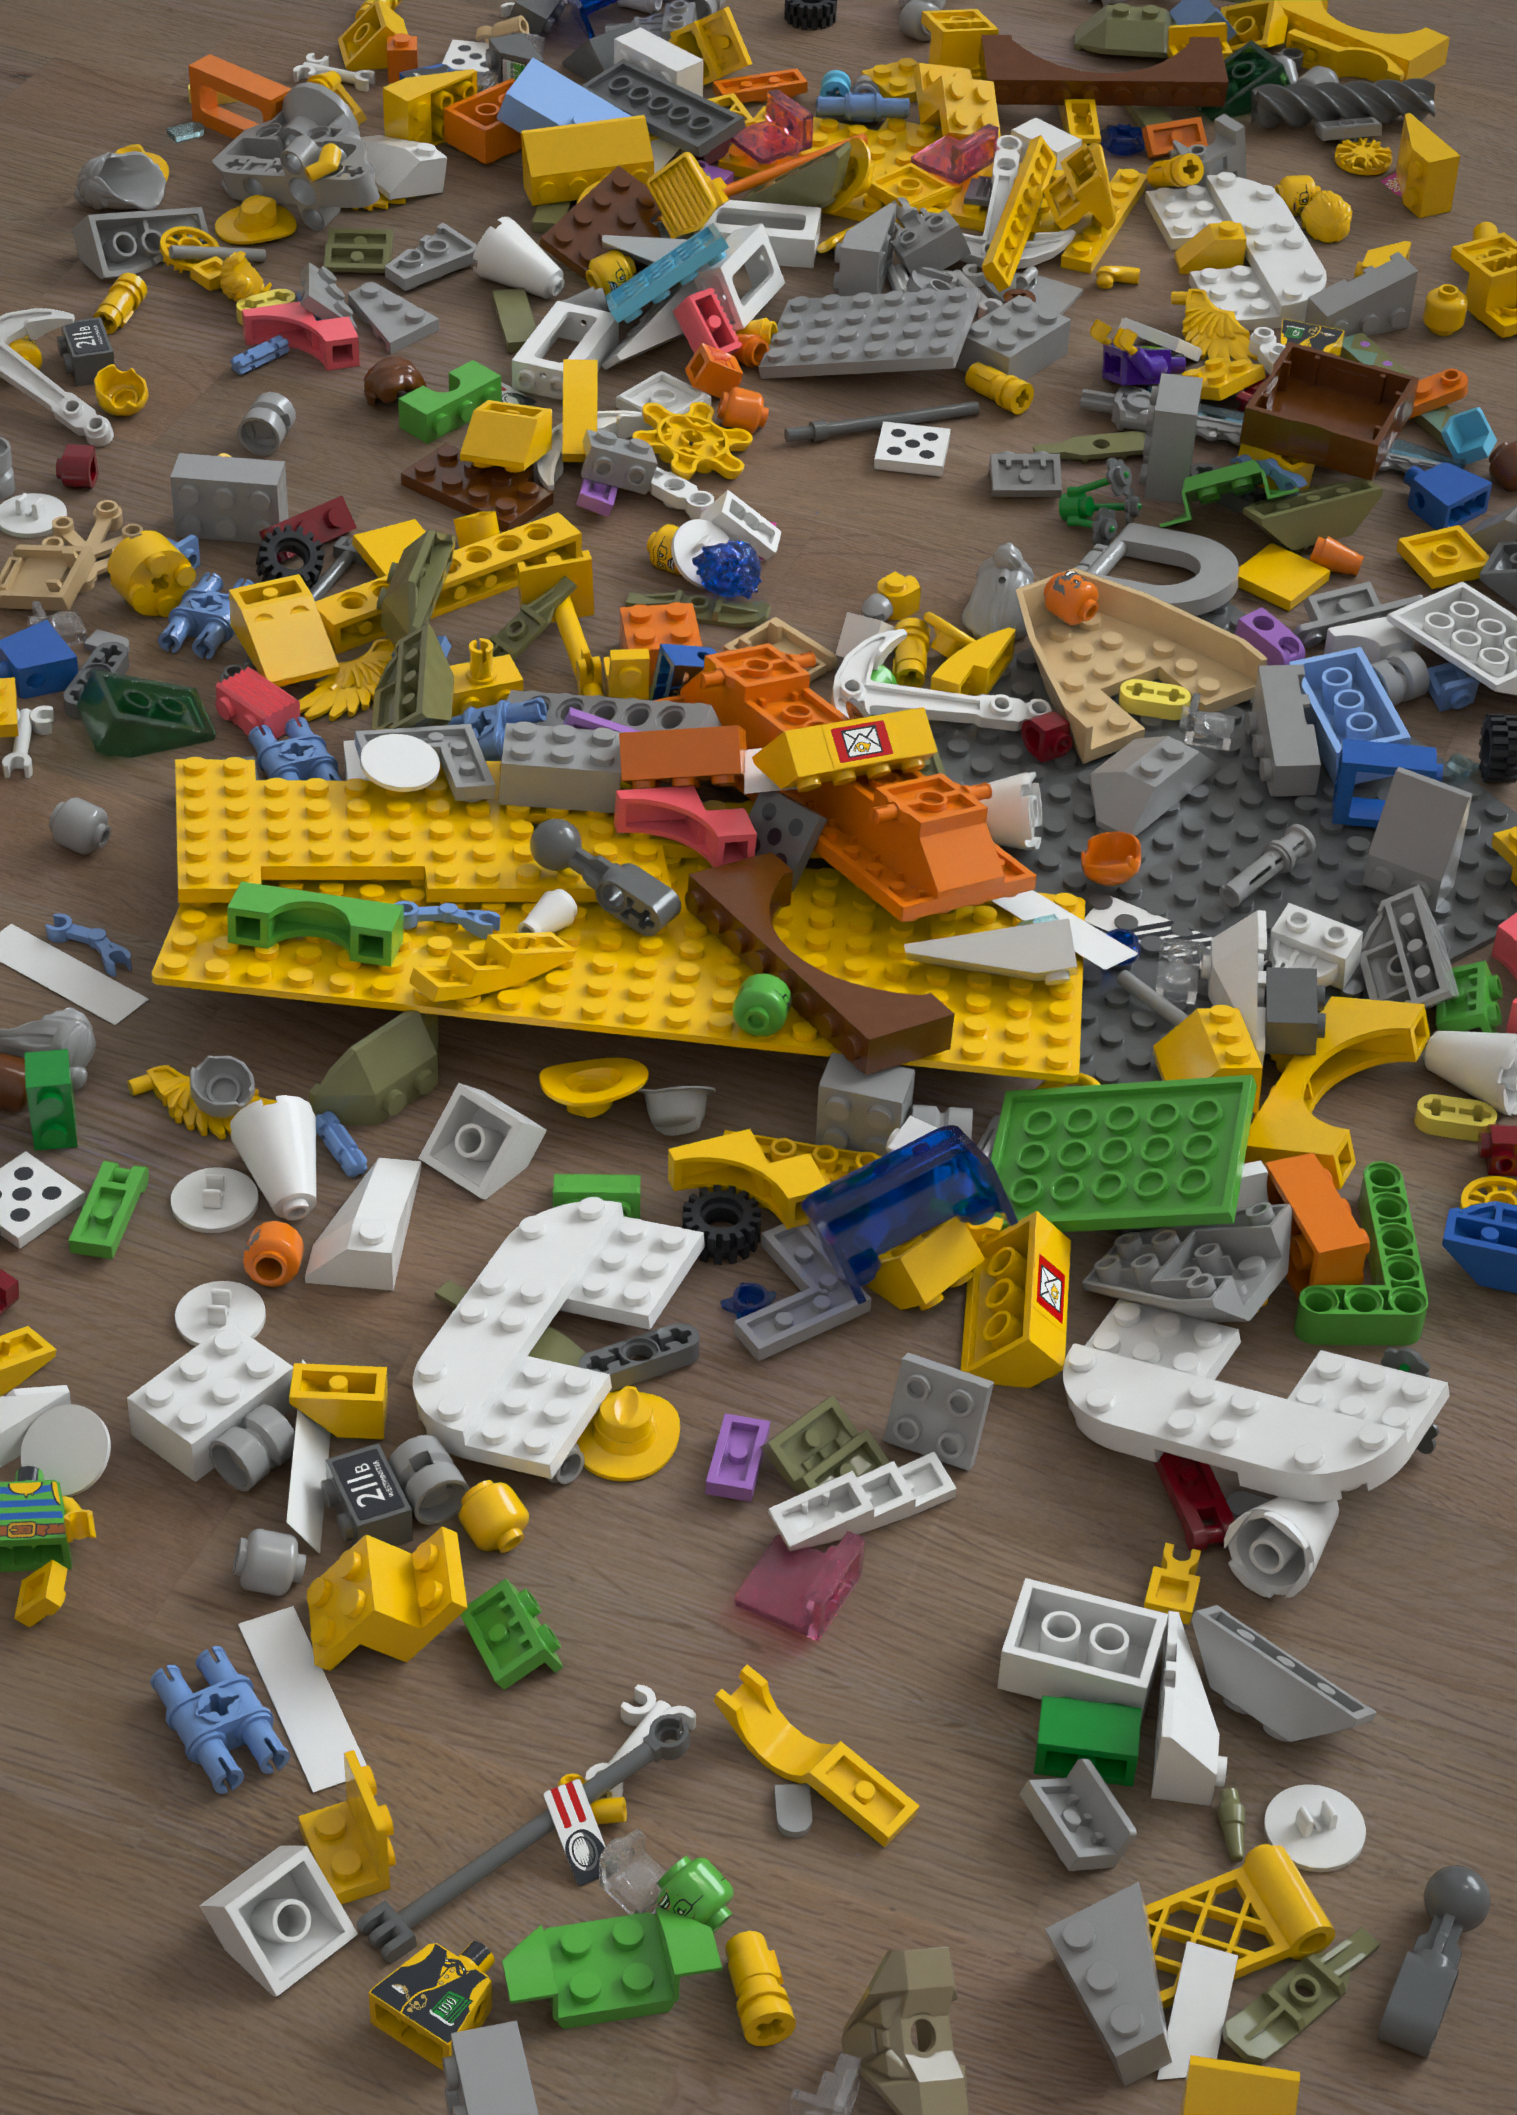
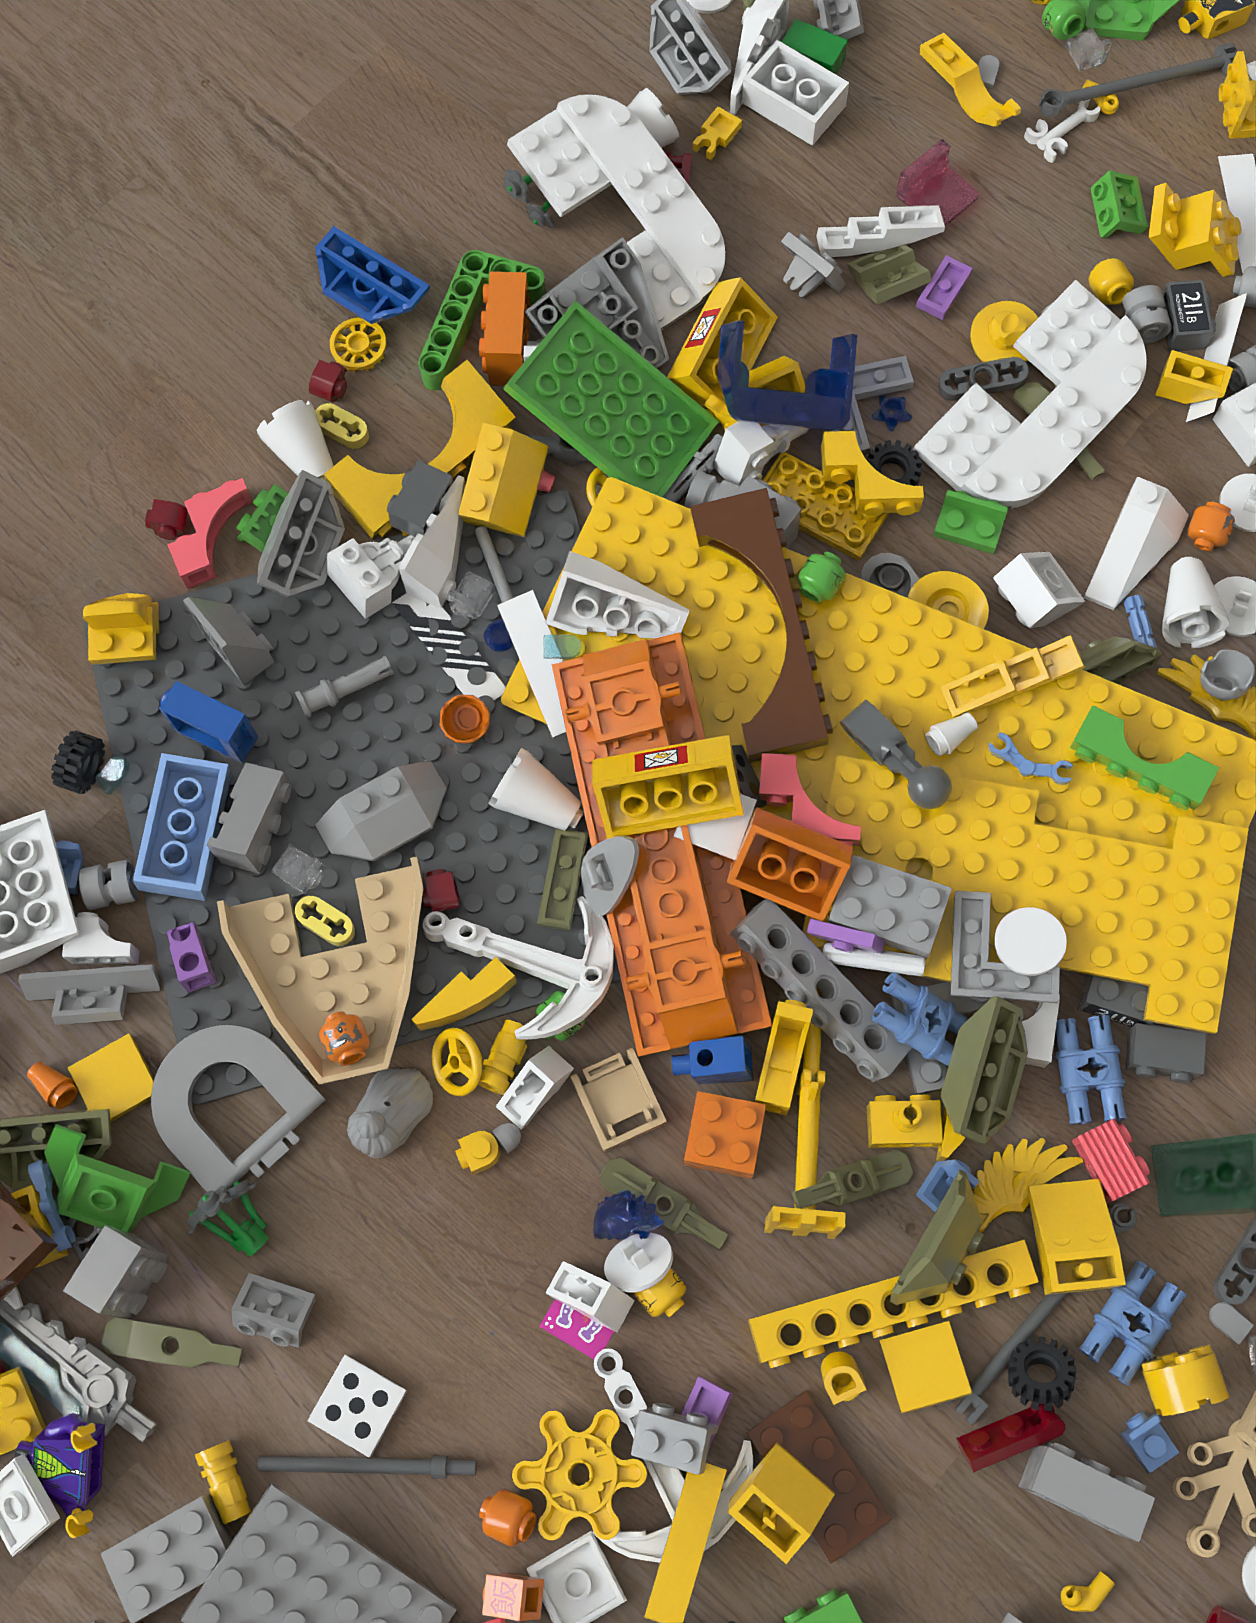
camera: 155 degrees left, 30 degrees up
(576, 1829) = (1115, 73): sticker -> none

